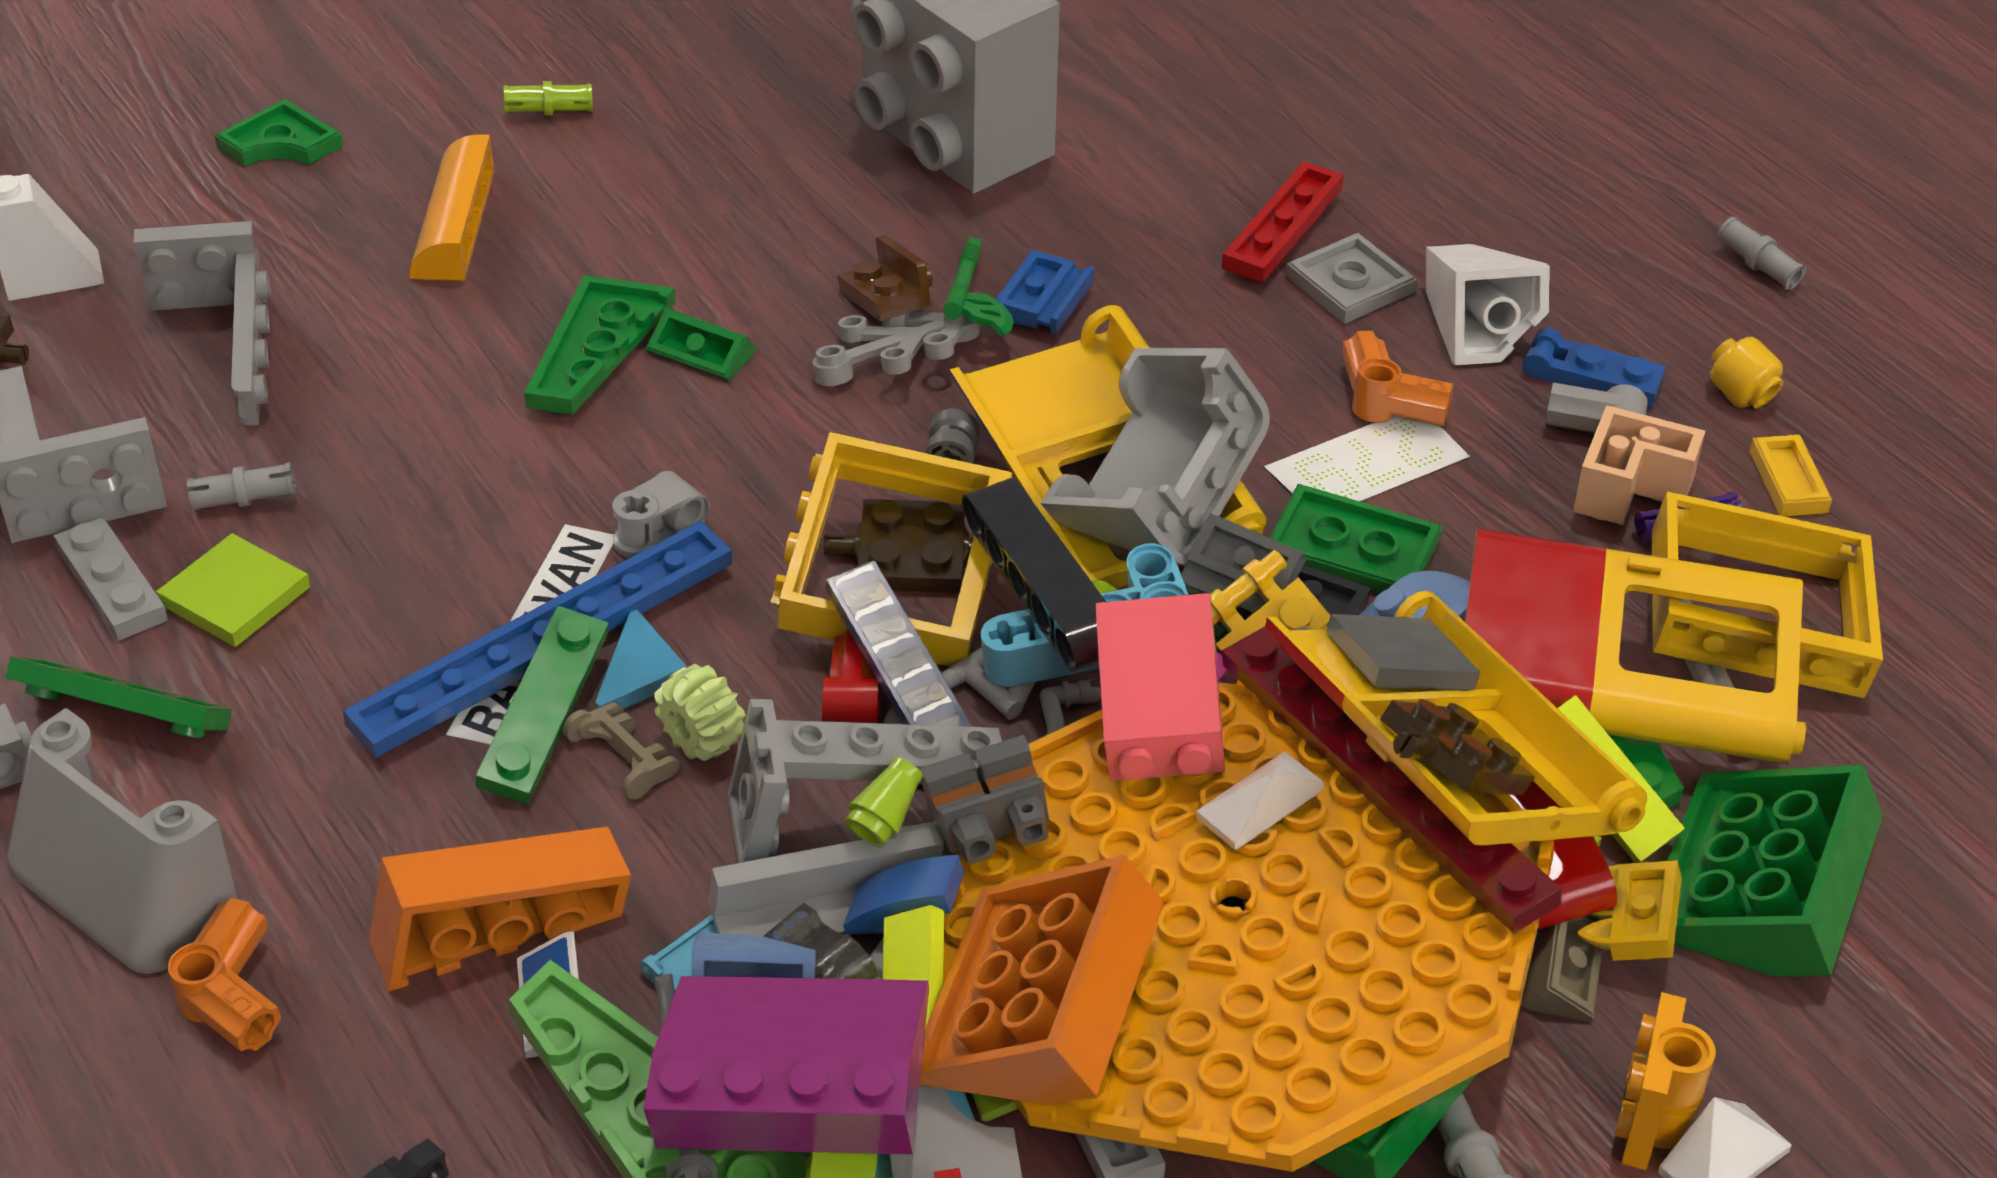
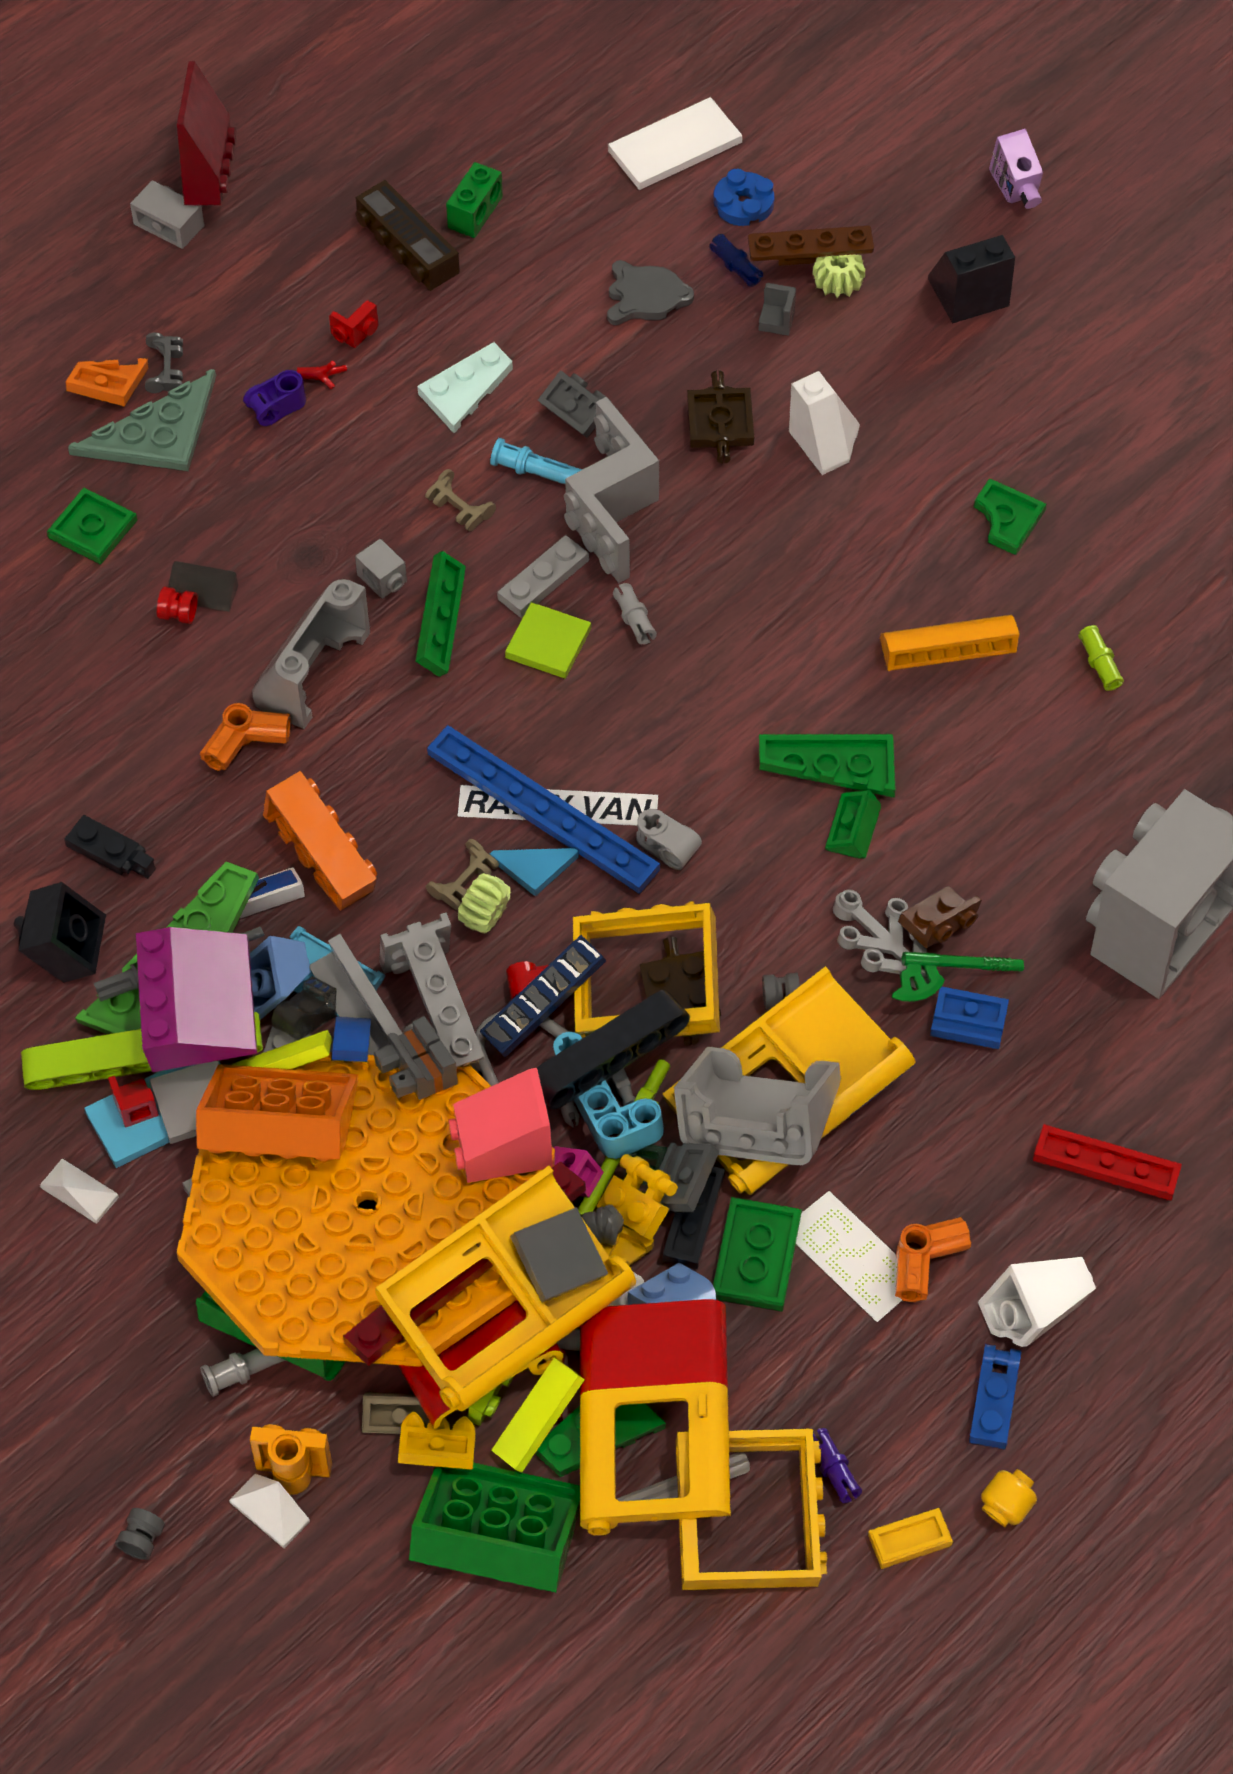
camera: 80 degrees right, 15 degrees up
(215, 268) = (787, 559): light grey bracket -> none
(541, 705) = (481, 823): plate -> none
(883, 804) = (397, 1005): lime cone -> none
(1259, 800) = (440, 1202): white slope -> none
(1351, 278) = (1059, 1219): light grey tile -> none
(1456, 747) = (458, 1285): dark brown plate -> none
(1582, 407) = (934, 1405): light grey piece -> none
(1635, 457) = (866, 1408): light nougat brick -> none
(1761, 253) = (1176, 1508): light grey pin -> none

